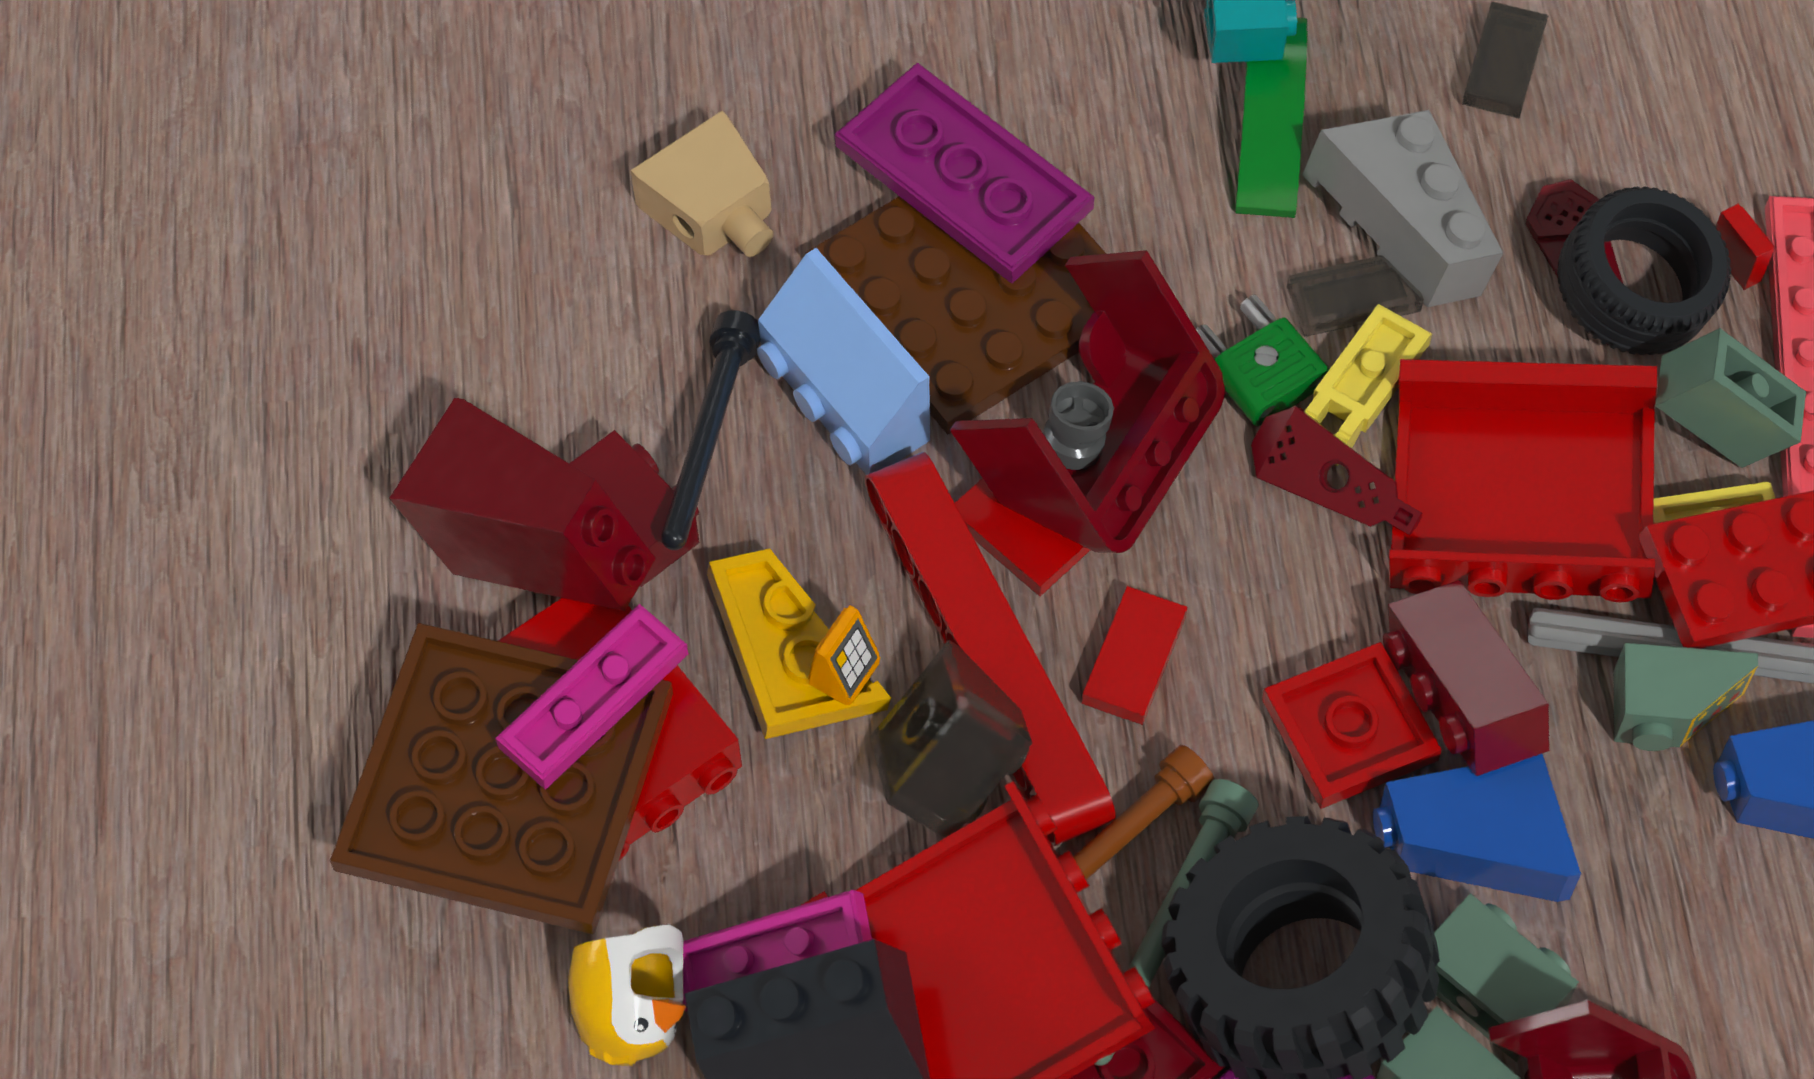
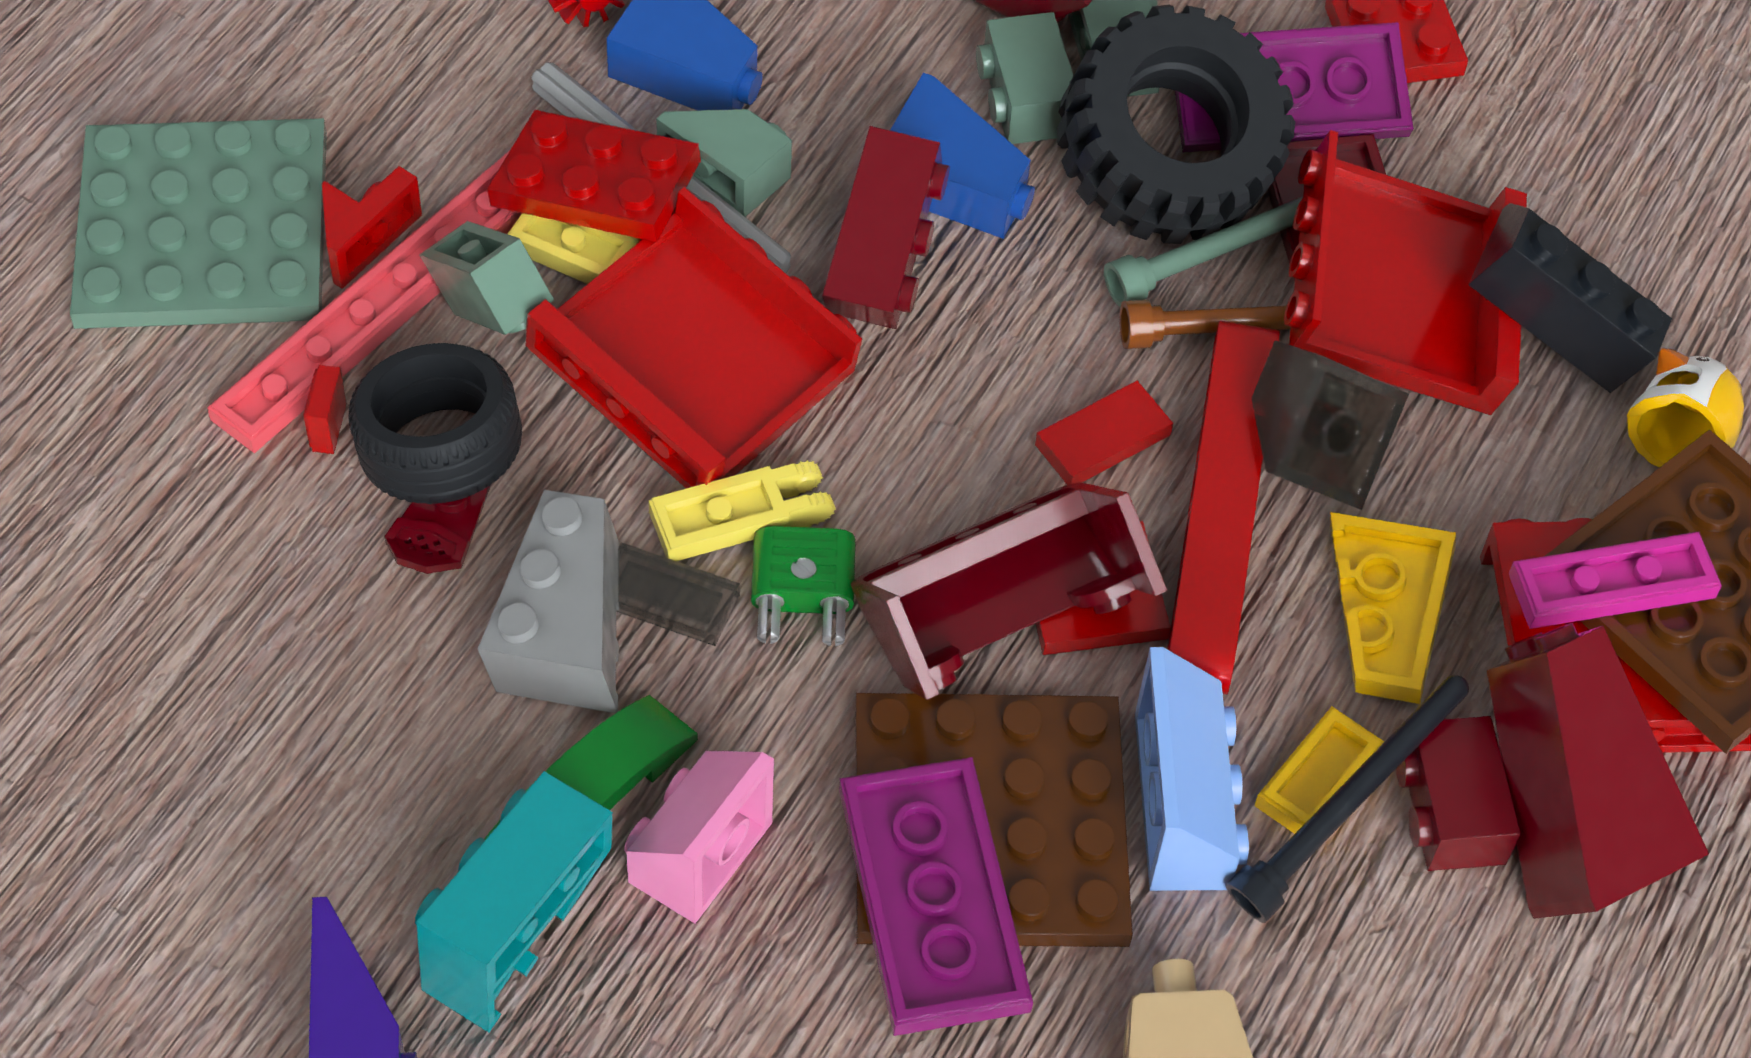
camera: 150 degrees left, 5 degrees down
(750, 474) = (1316, 769): none -> yellow tile
(775, 940) = (1556, 370): dark pink tile -> none
(844, 658) = (1362, 543): slope -> none
(1078, 423) = (1024, 590): dark grey wheel -> none
(1164, 112) = (702, 830): none -> bright pink slope
(1308, 465) = (844, 478): dark red piece -> none
(1351, 725) = (983, 282): red plate -> none
(1505, 59) = (329, 707): clear smoke tile -> none

